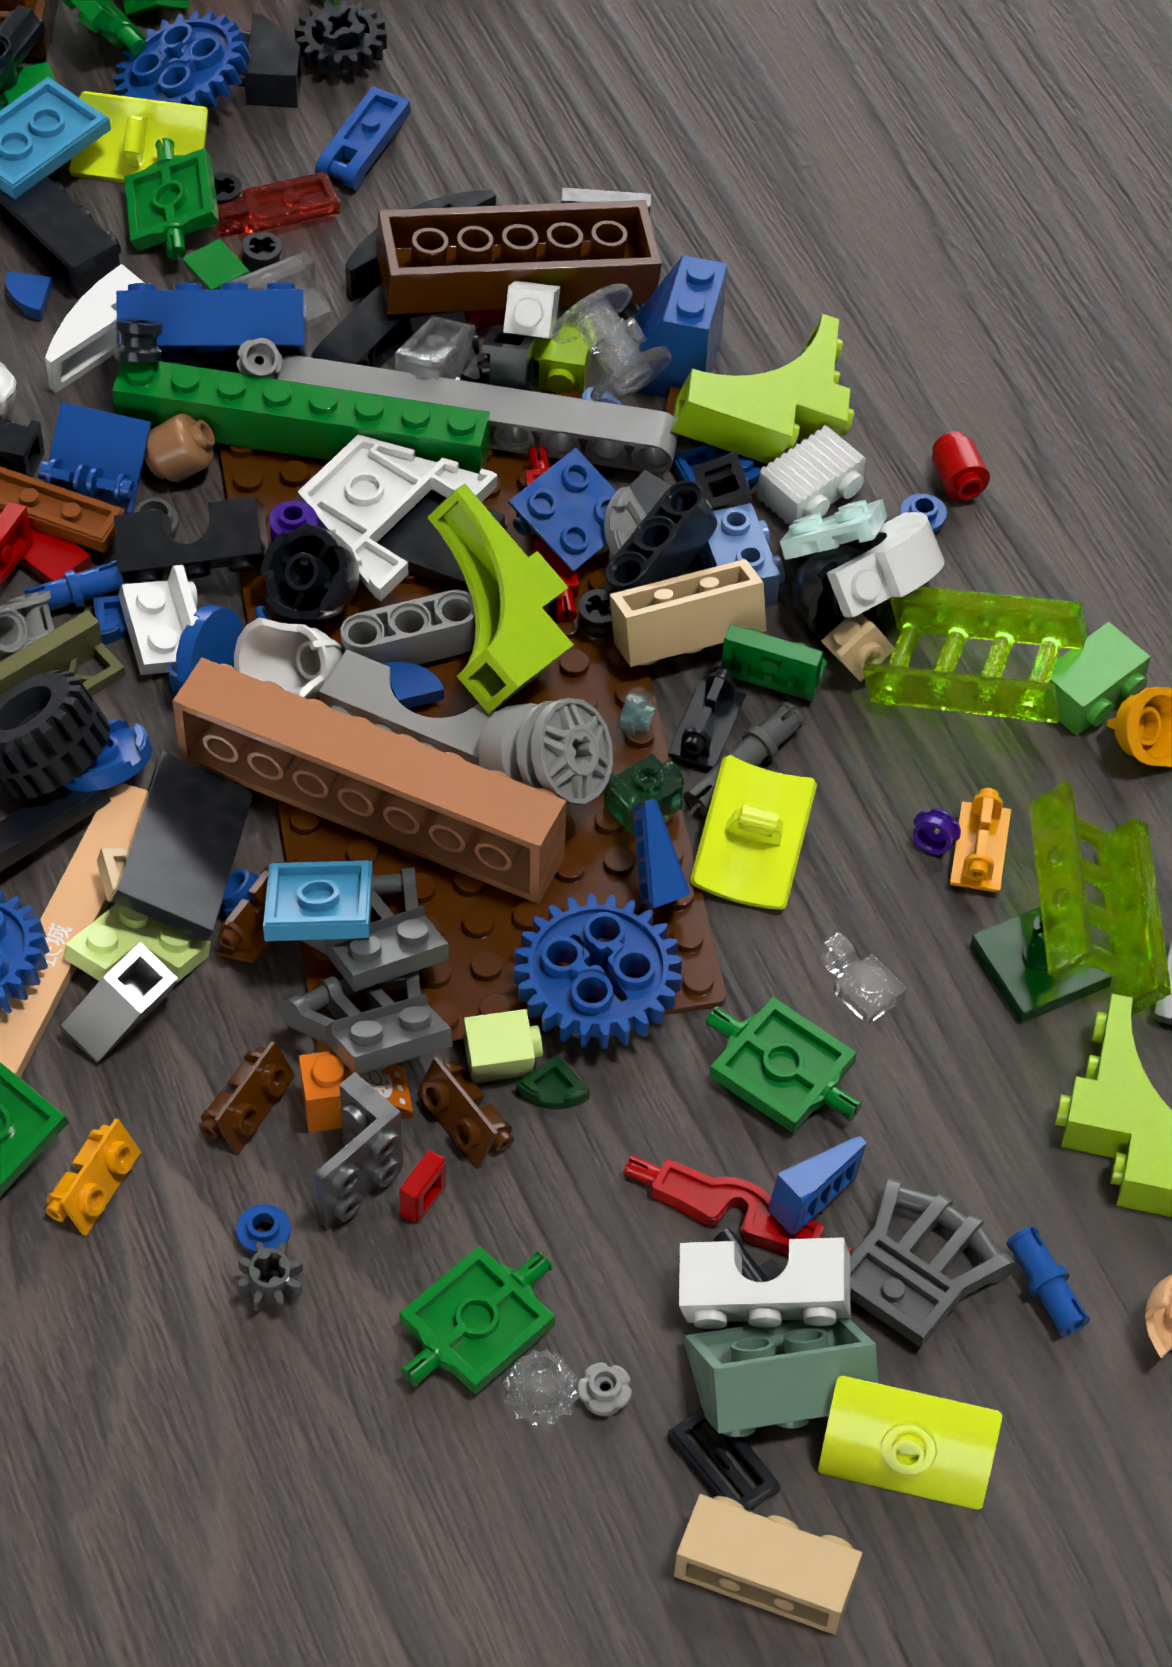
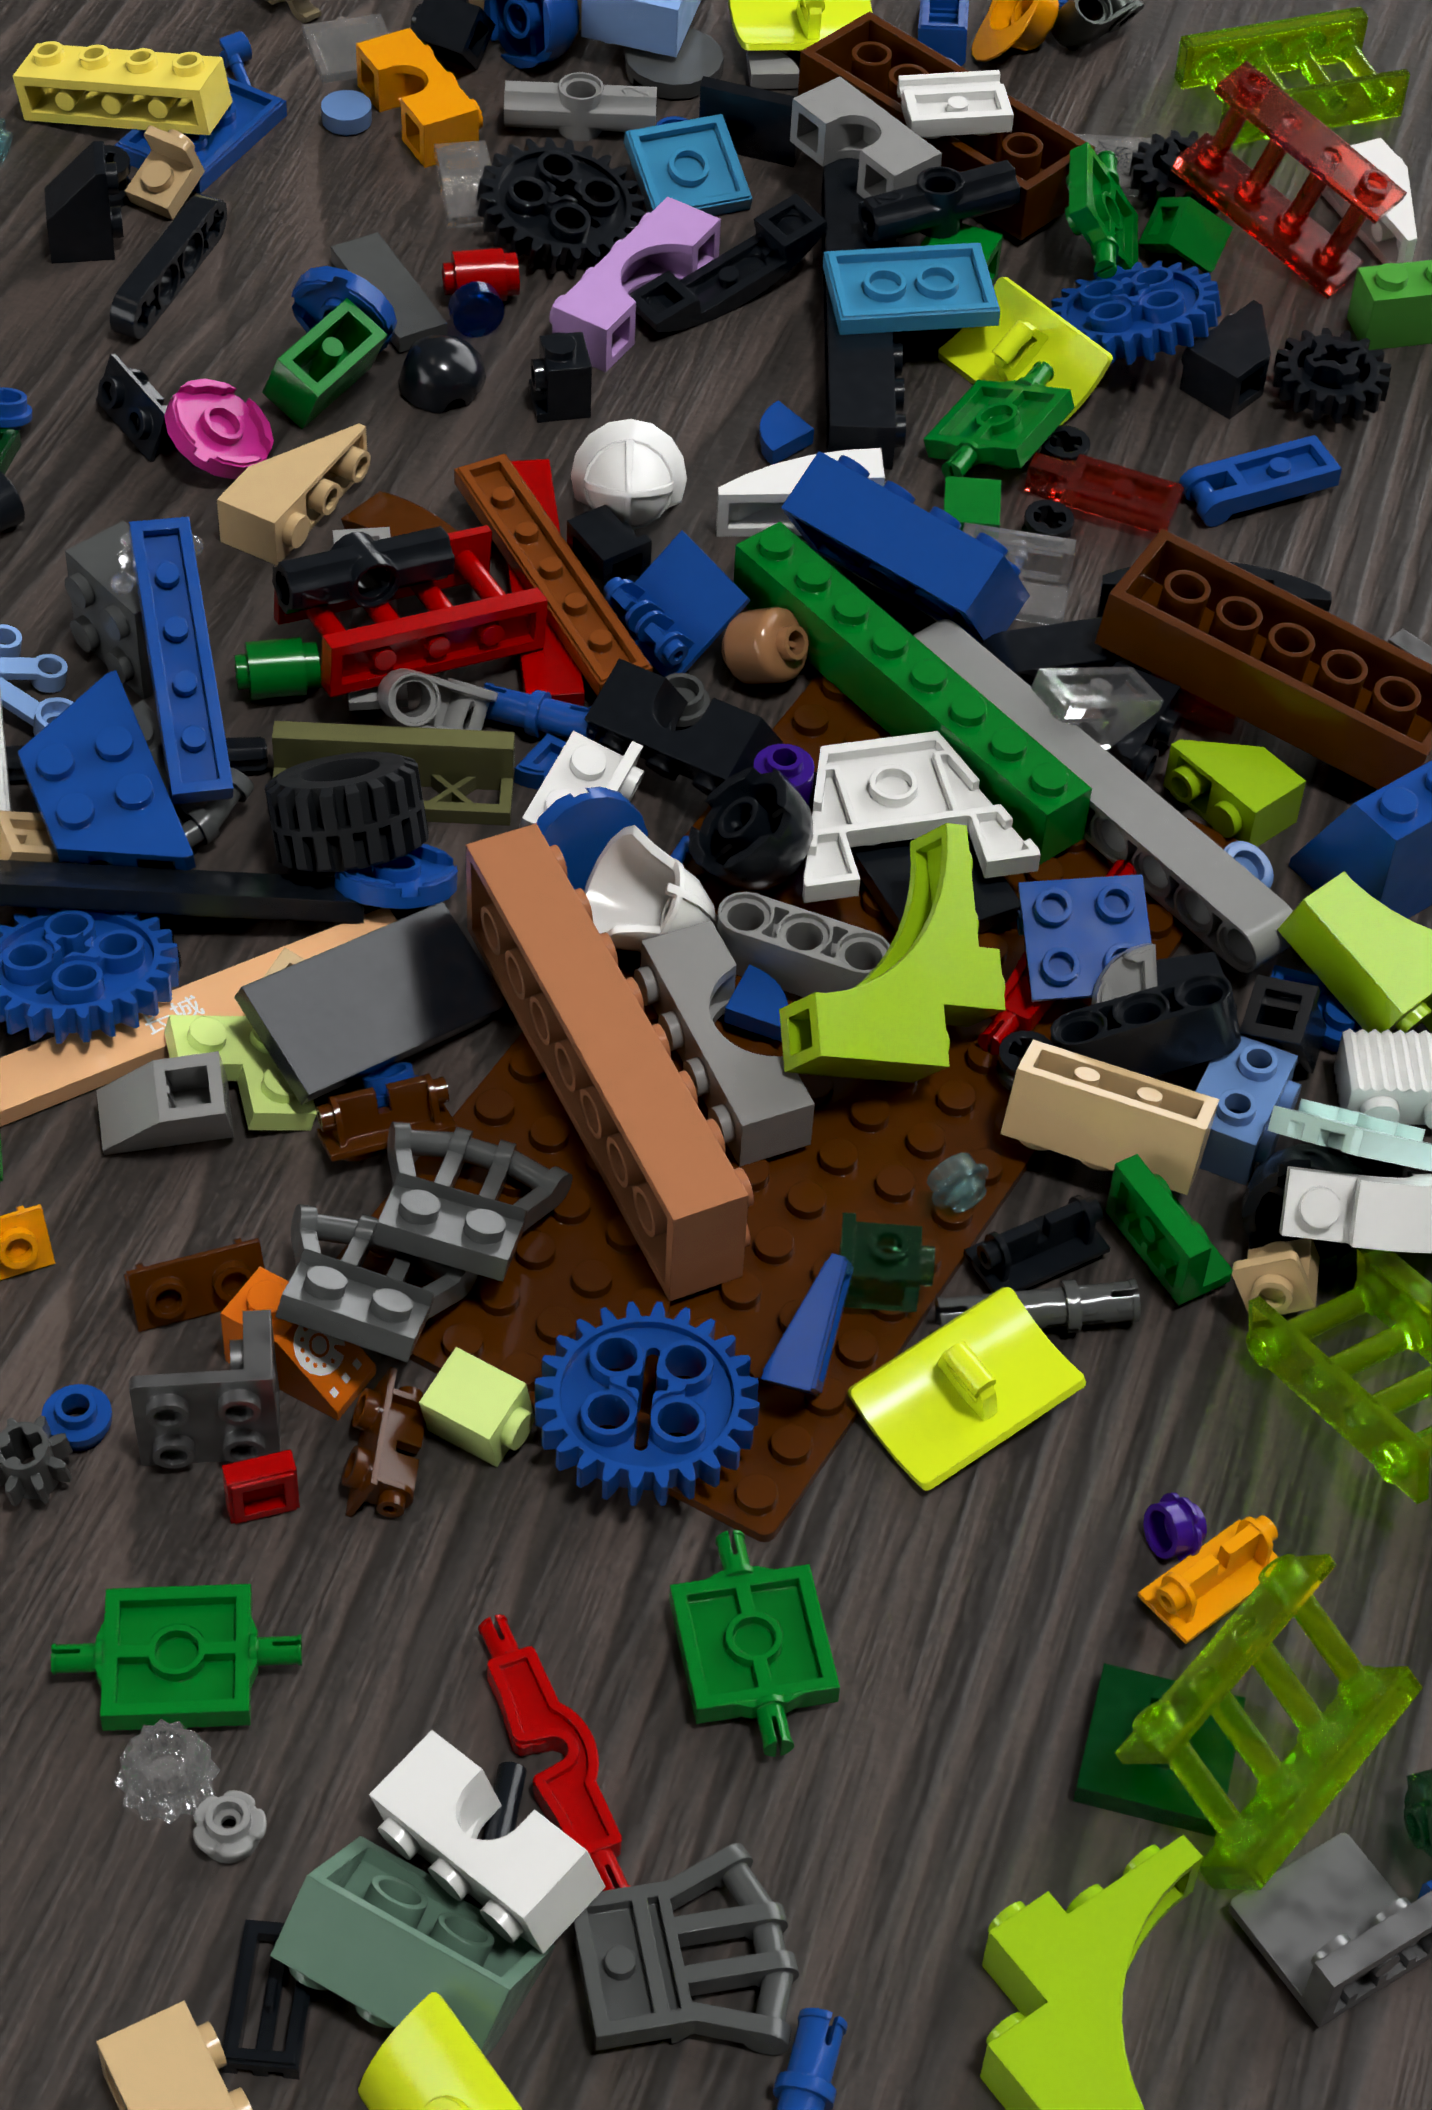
camera: 40 degrees right, 5 degrees down
(138, 340) = (795, 508): black wheel -> none
(259, 348) = (910, 587): light grey plate -> none
(318, 900) = (426, 1132): dark azure tile -> none
(509, 360) = (1174, 758): black brick -> none
(531, 309) = (1236, 717): white brick -> none
(550, 747) = (767, 1132): light grey wheel -> none
(553, 1086) = (500, 1490): dark green tile -> none
(615, 339) = (1298, 795): clear hose -> none
(814, 1183) = (650, 1786): blue slope -> none
(862, 985) = (931, 1629): clear plate -> none

